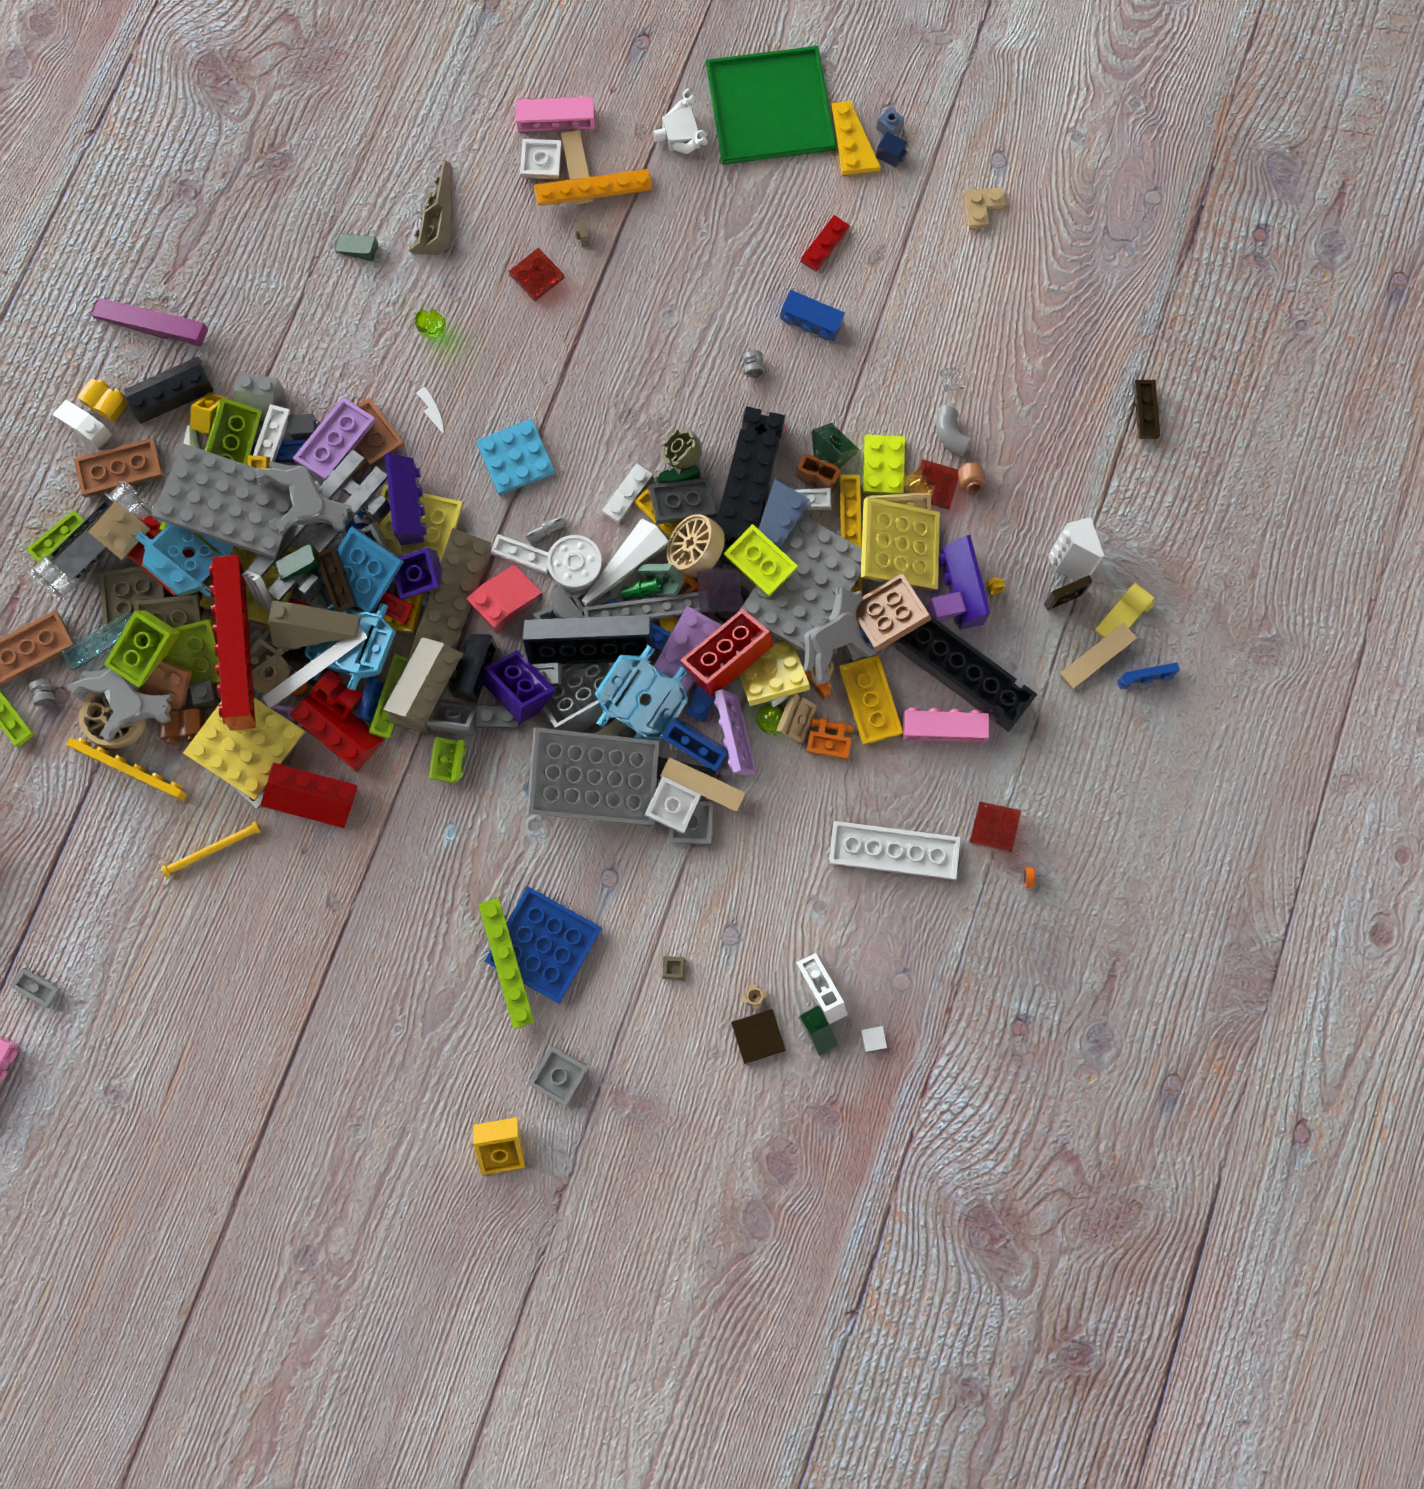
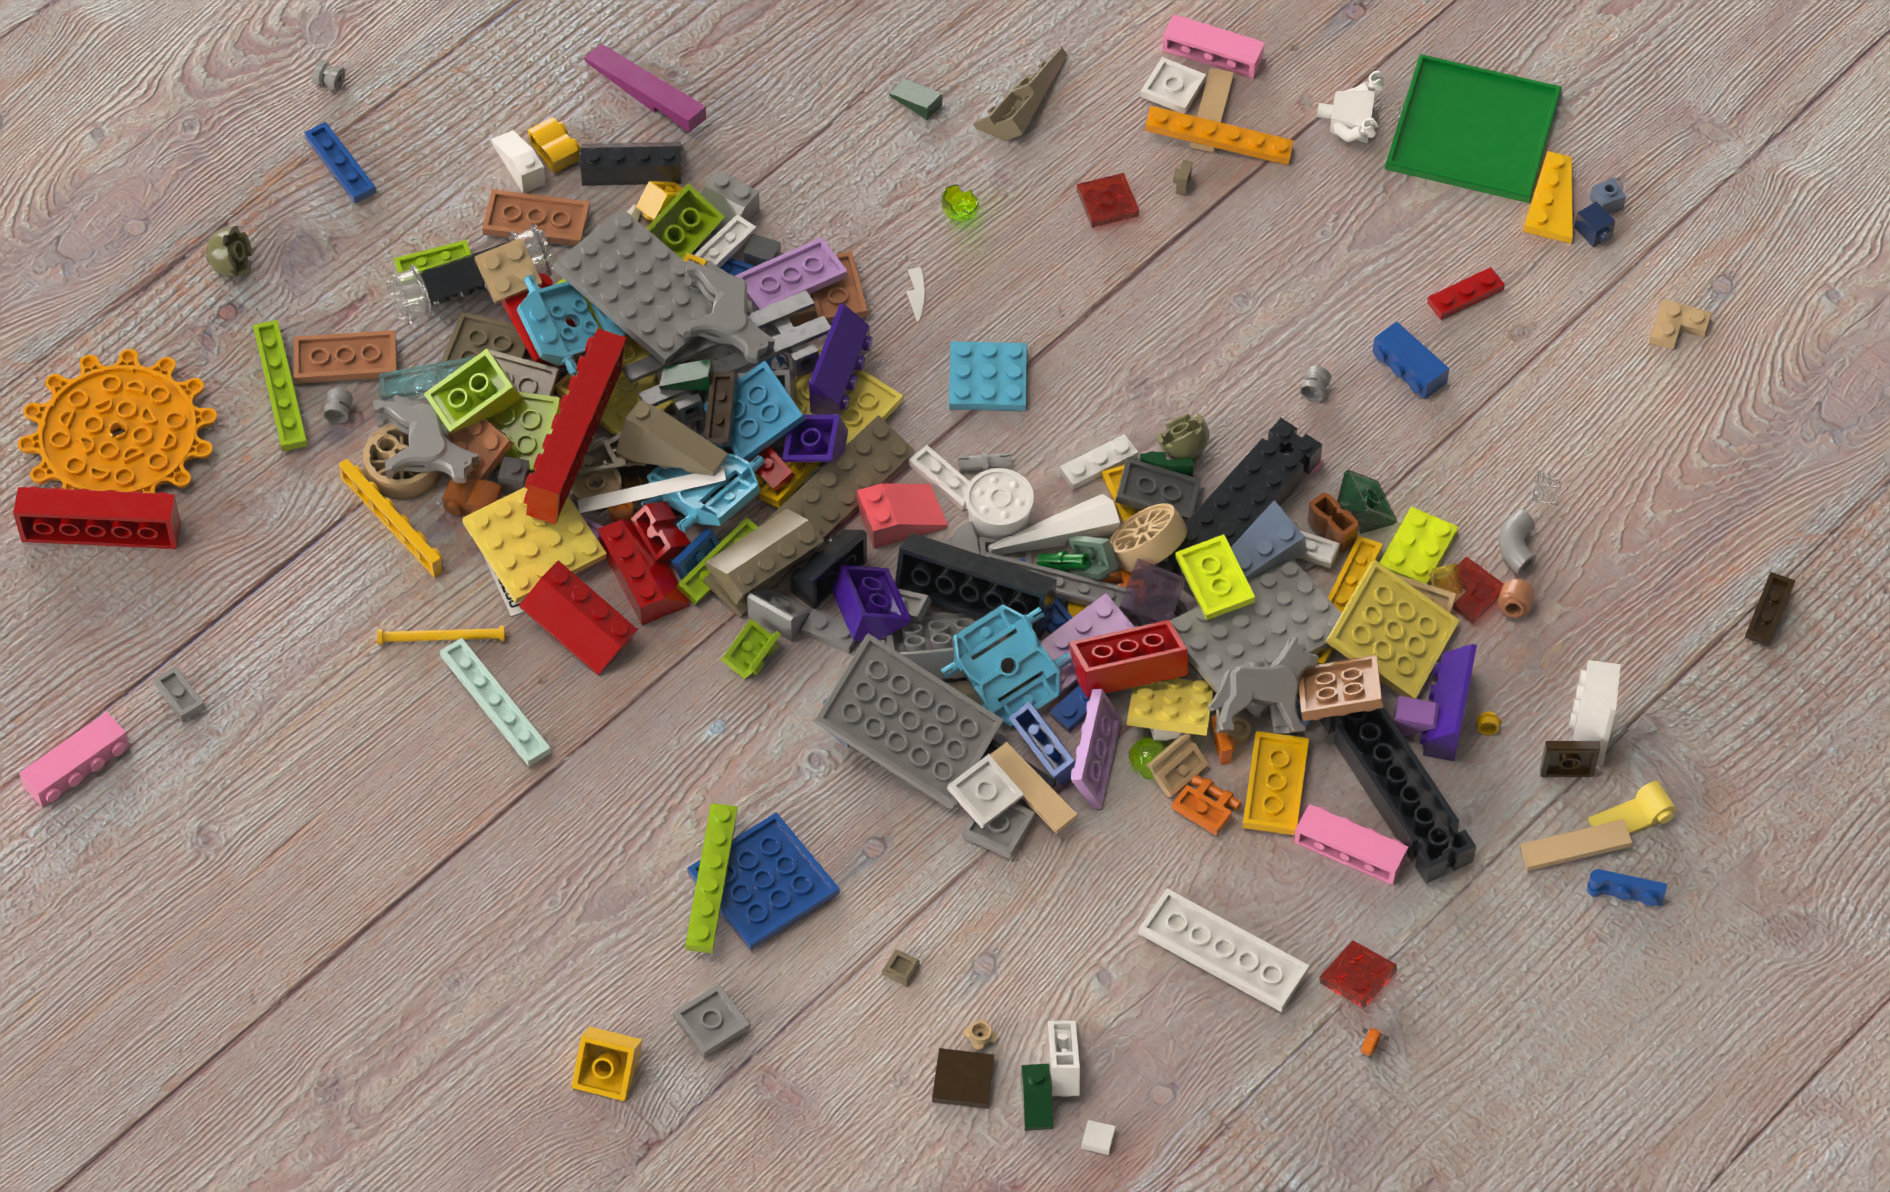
camera: 25 degrees right, 20 degrees down
(258, 590) = (628, 387): white tile -> none
(278, 887) = (495, 702): none -> light aqua plate

